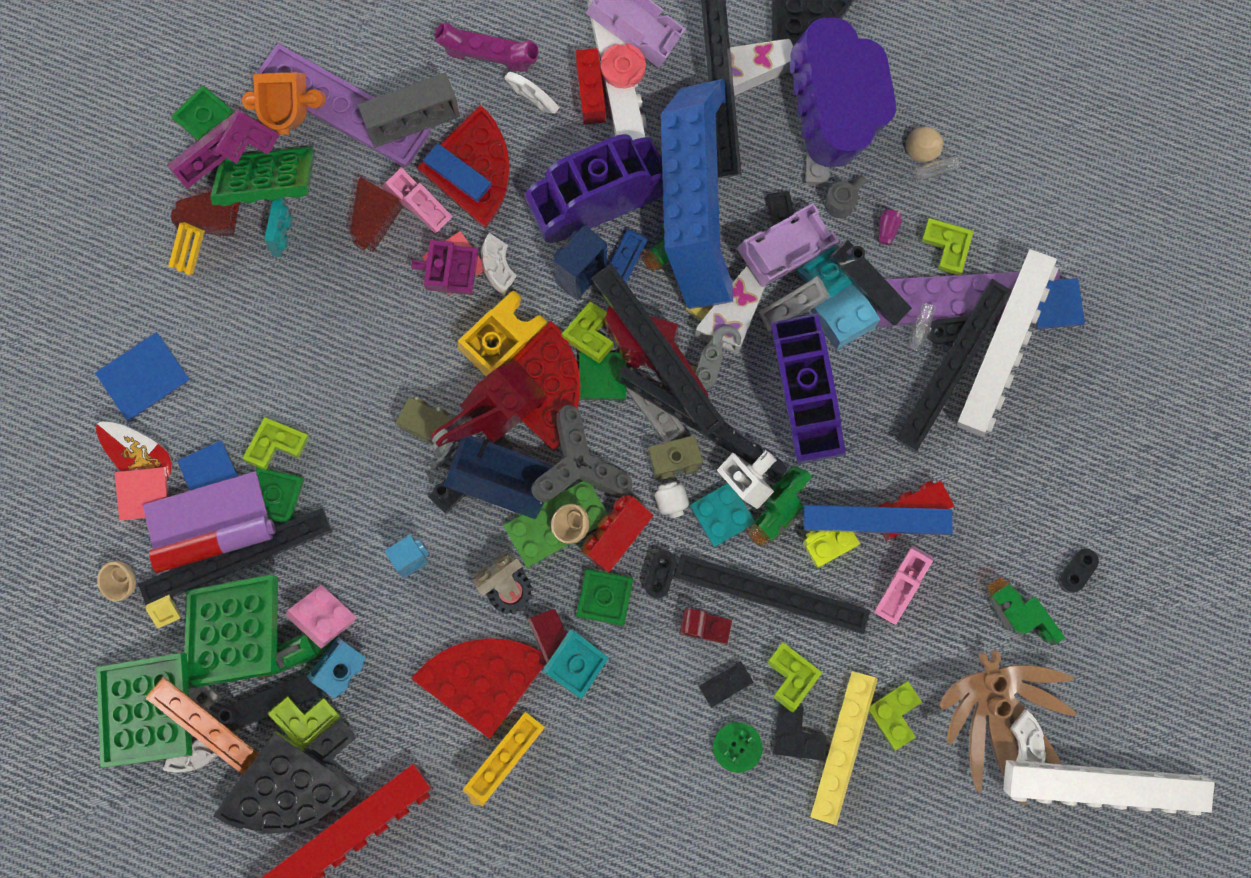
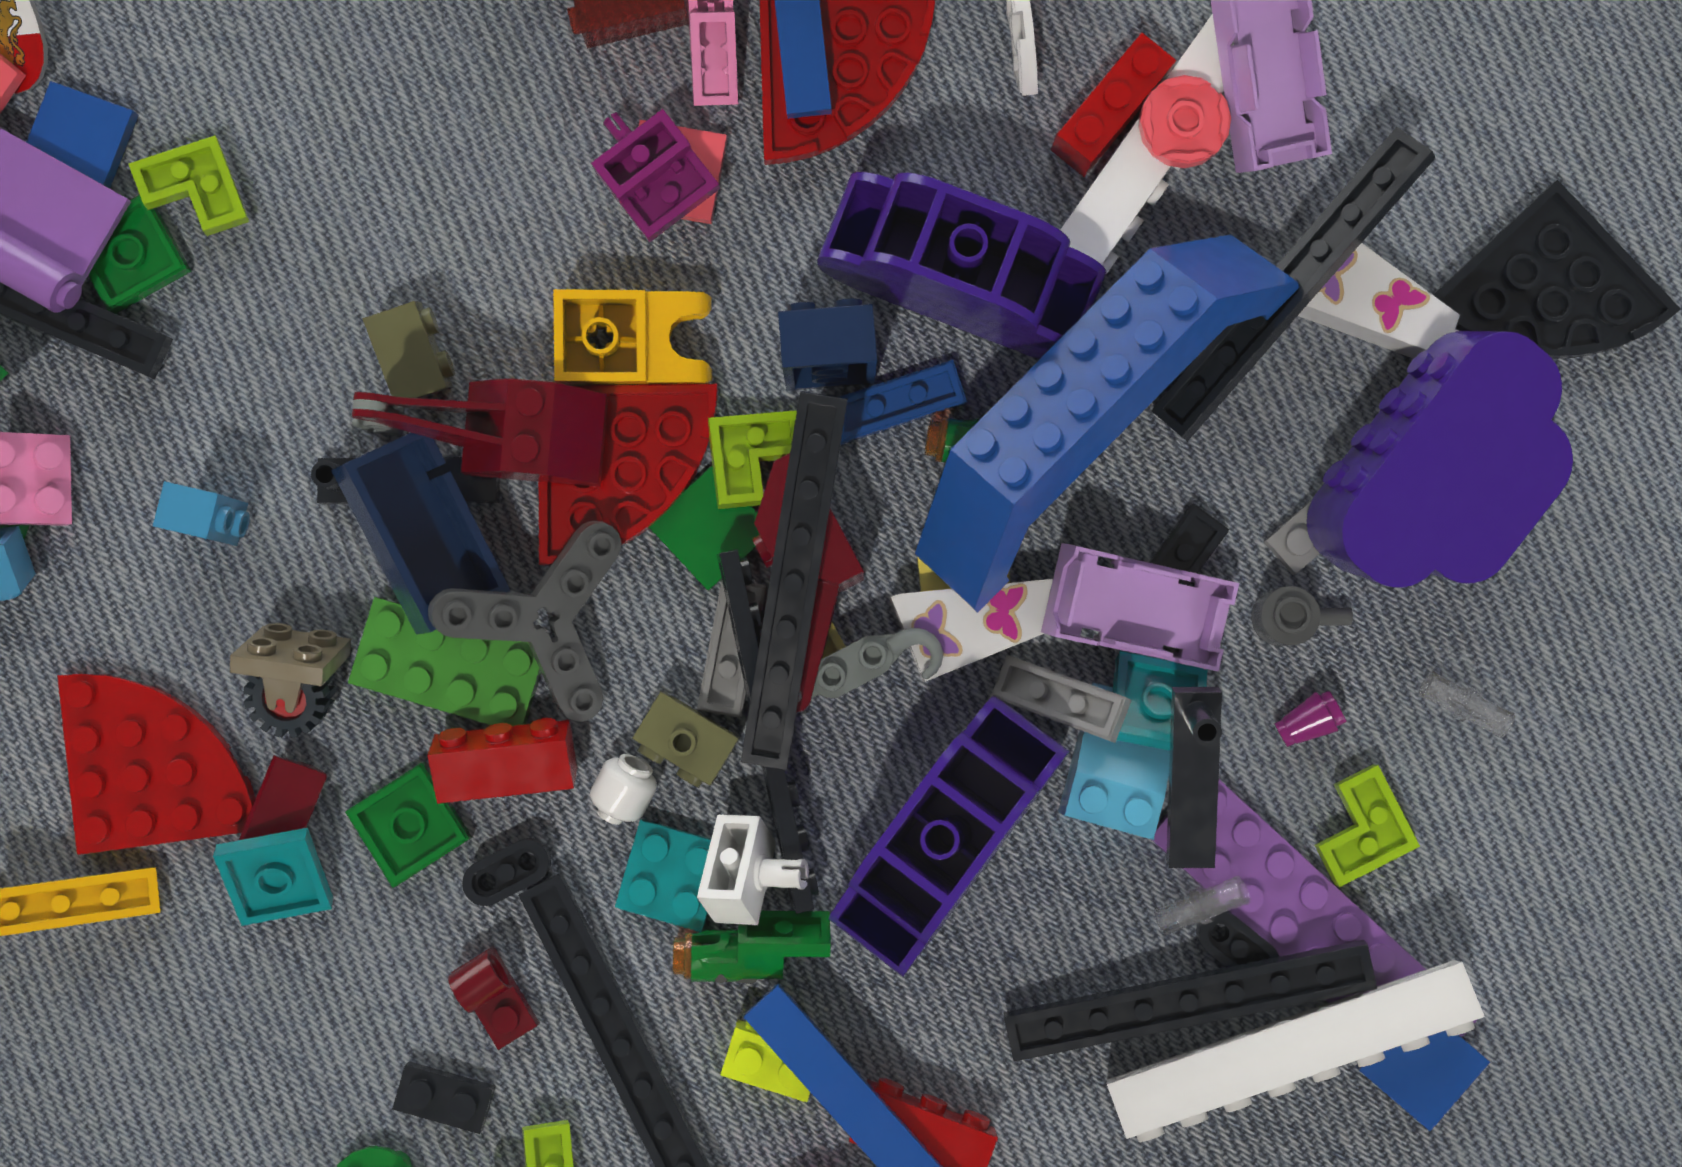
camera: 45 degrees right, 10 degrees up
(495, 264) = (725, 230): white tile -> none
(570, 523) = (448, 690): tan piece -> none
(924, 144) = (1488, 653): tan piece -> none

